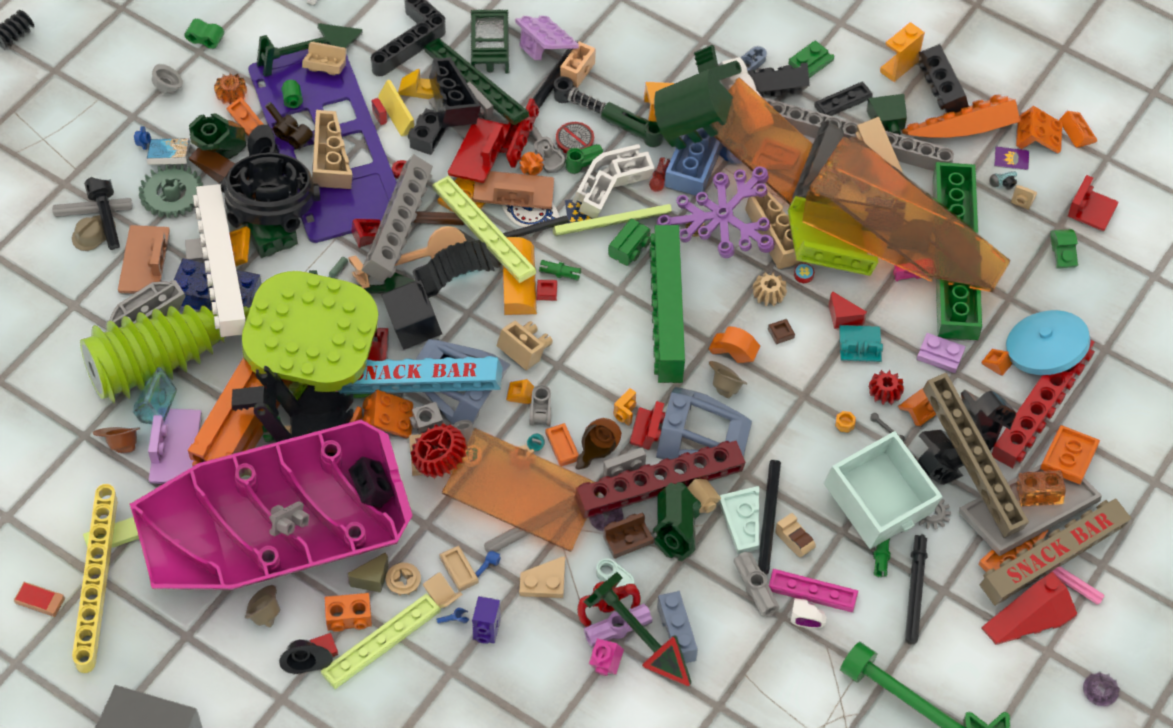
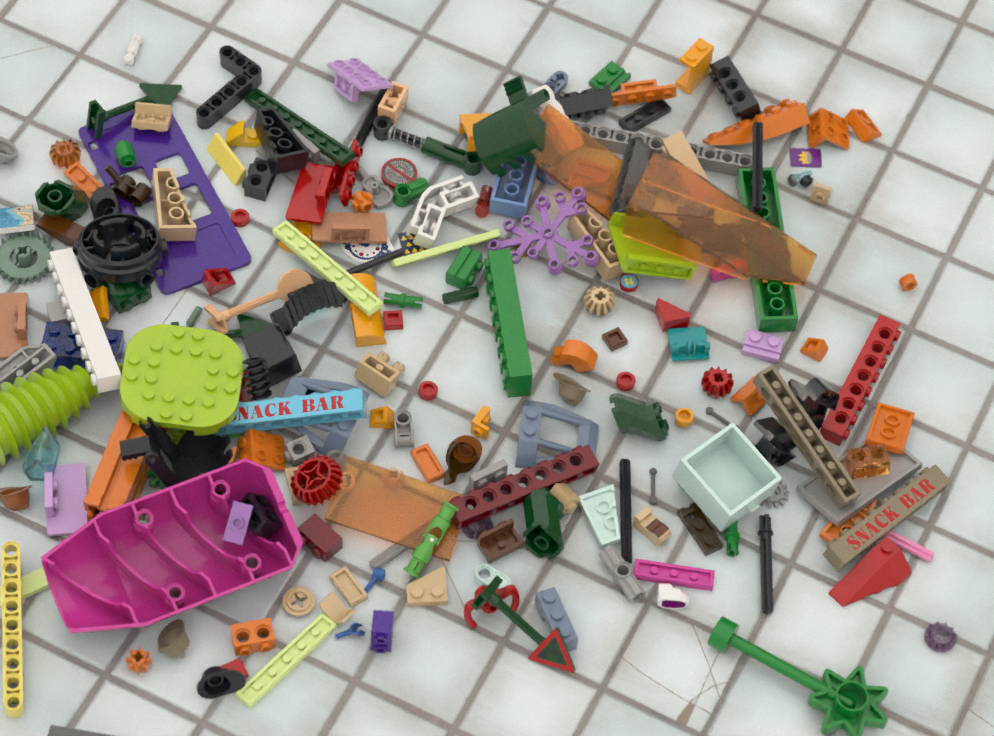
camera: 10 degrees left, 0 degrees up
(204, 33) = (31, 101): green axle -> none
(223, 625) = (136, 666): none -> orange gear
(287, 518) = (186, 556): light grey hips -> none
(347, 488) = (238, 522): none -> medium lavender plate
(370, 575) = (268, 601): olive slope -> none
(379, 111) = (211, 163): red tile -> none
(391, 336) = (258, 378): none -> black piece
(397, 219) = (246, 265): light grey brick -> none
(435, 513) = (320, 538): none -> dark red brick
(438, 218) = (277, 261): reddish brown axle -> none
(490, 38) = (306, 84): dark green door -> none
(536, 445) = (403, 466): teal hinge -> none
(543, 539) = (424, 550): none -> bright green piece
(573, 367) = (428, 390): none -> red tile
(606, 630) = (491, 628): lavender piece -> none
(606, 657) = (495, 653): dark pink brick -> none
(621, 270) = (460, 295): none -> dark green axle
(646, 426) = (503, 438): red bracket -> none
(787, 377) = (625, 381): none -> red tile
(796, 416) = (639, 417): none -> dark green brick
(801, 507) = (653, 500): none -> dark grey hinge
(843, 75) = (642, 92): none -> orange bracket
(848, 544) = (700, 529): none -> dark brown plate
(890, 110) = (690, 122): dark green torso -> none
(956, 163) = (757, 166): none -> black axle
(1048, 342) = (859, 327): medium azure dish -> none
(1064, 245) = (863, 236): green brick -> none
(1091, 206) = (884, 198): red bracket -> none
(1108, 299) = (908, 282): none -> orange bush

